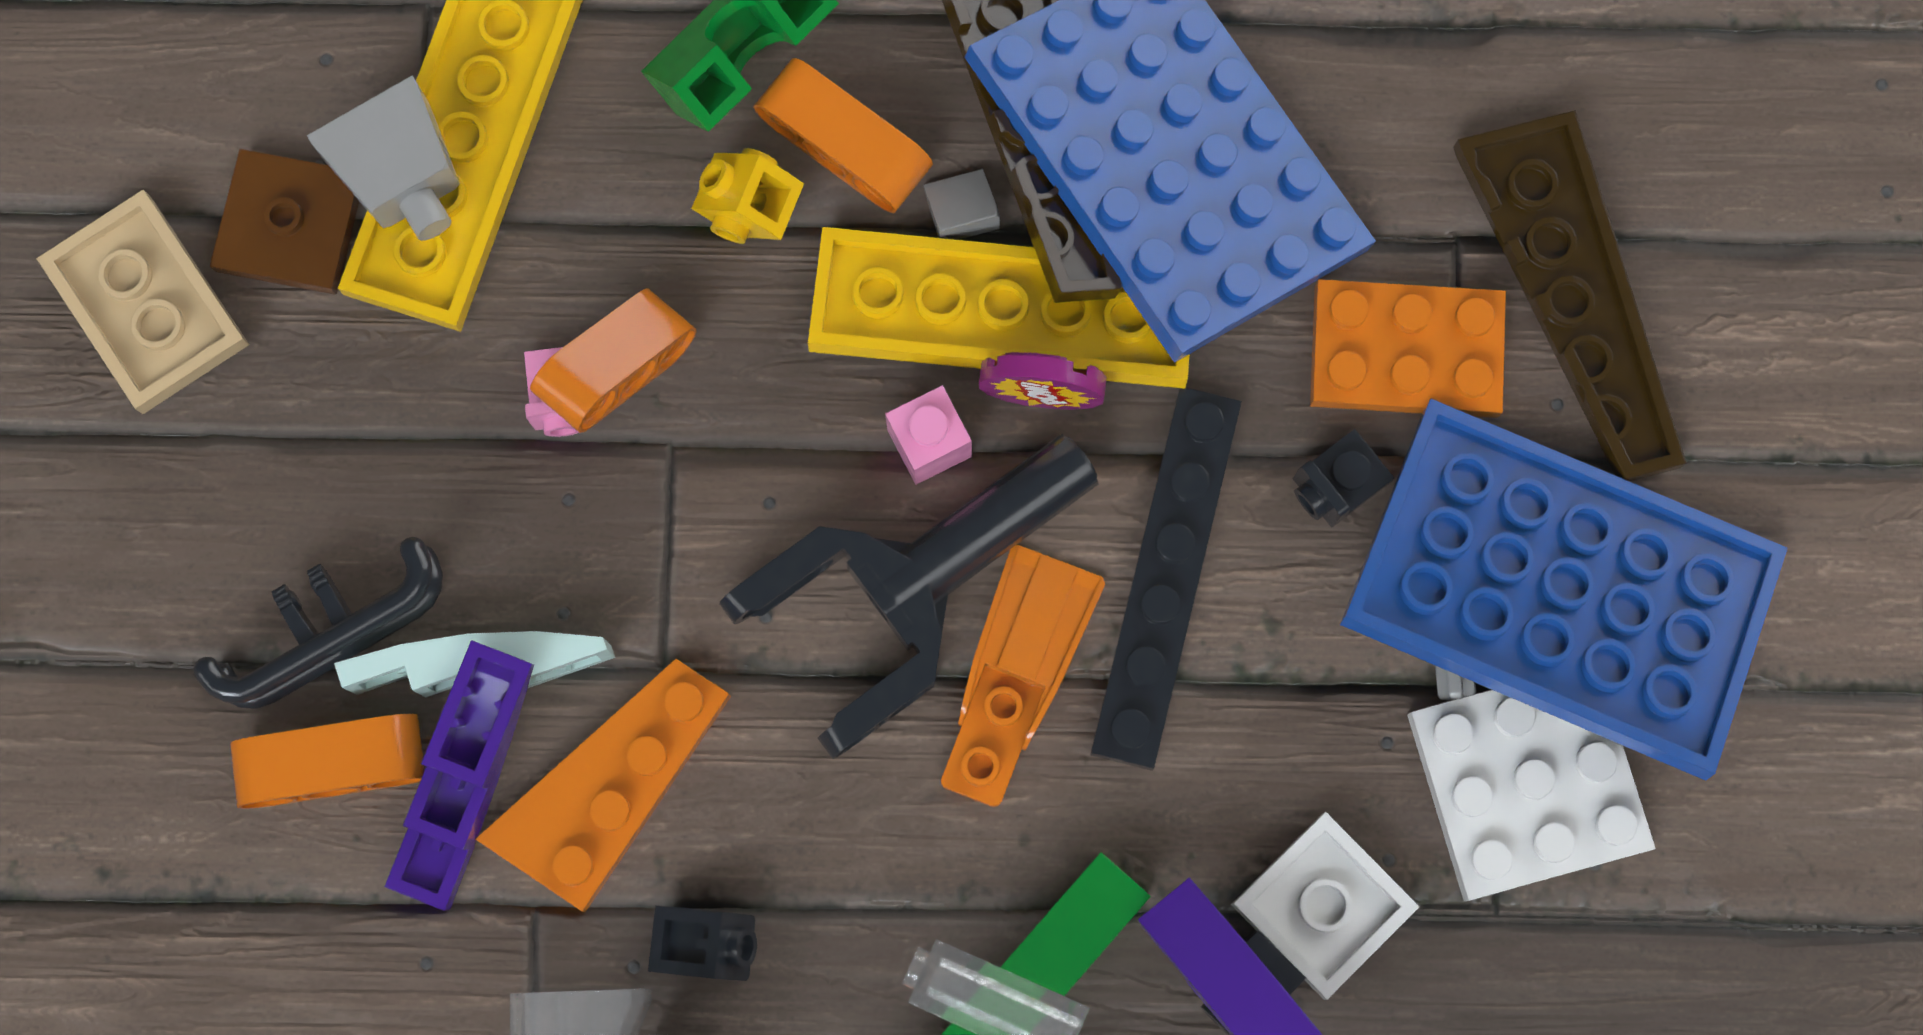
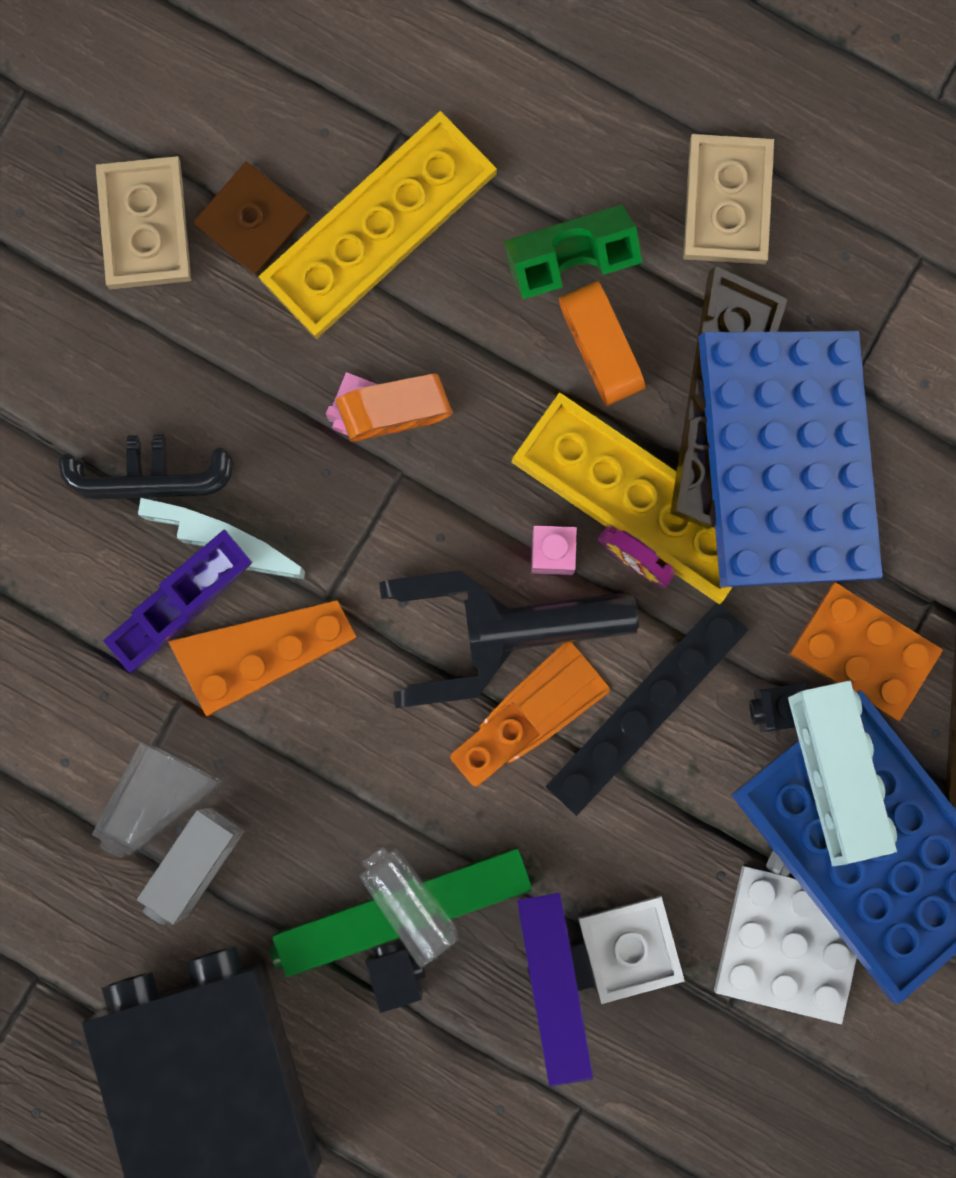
camera: 30 degrees right, 5 degrees up
(327, 761) = (108, 550): orange beam -> none
(392, 158) = (330, 217): light grey torso -> none
(702, 943) = (264, 772): black bracket -> none
(746, 196) = (524, 350): yellow brick -> none
(962, 206) = (649, 423): light grey slope -> none
(1469, 514) = (843, 773): none -> light aqua brick

